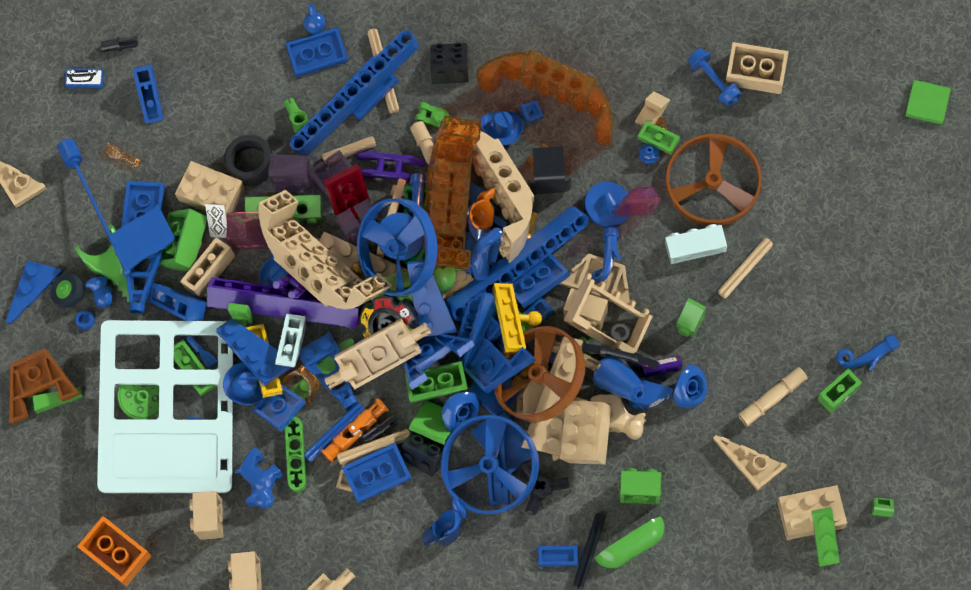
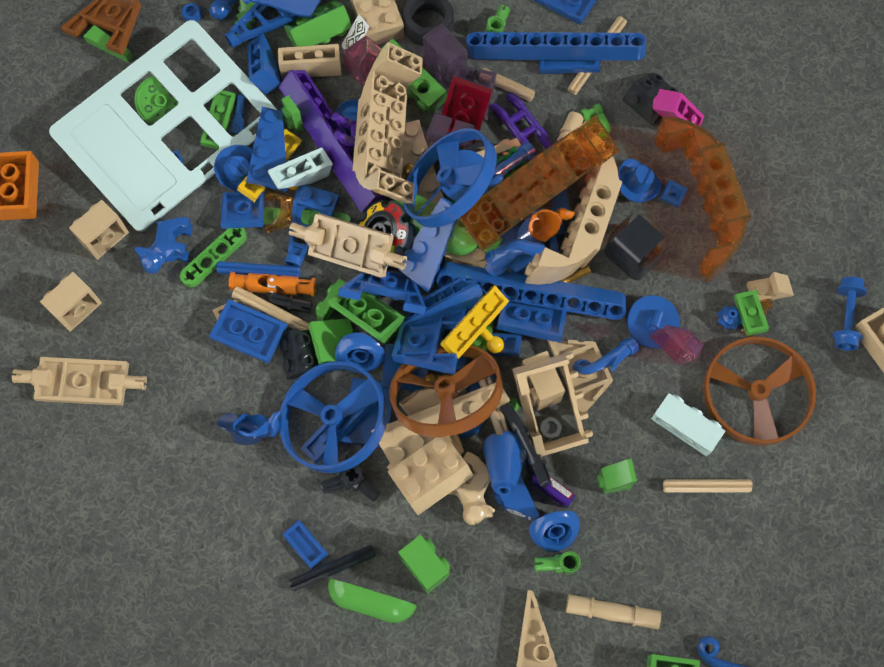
camera: 40 degrees right, 0 degrees up
(404, 409) = (323, 309): none -> bright green plate
(477, 56) = (676, 105): none -> dark pink slope
(711, 404) = (556, 563): none -> bright green pin

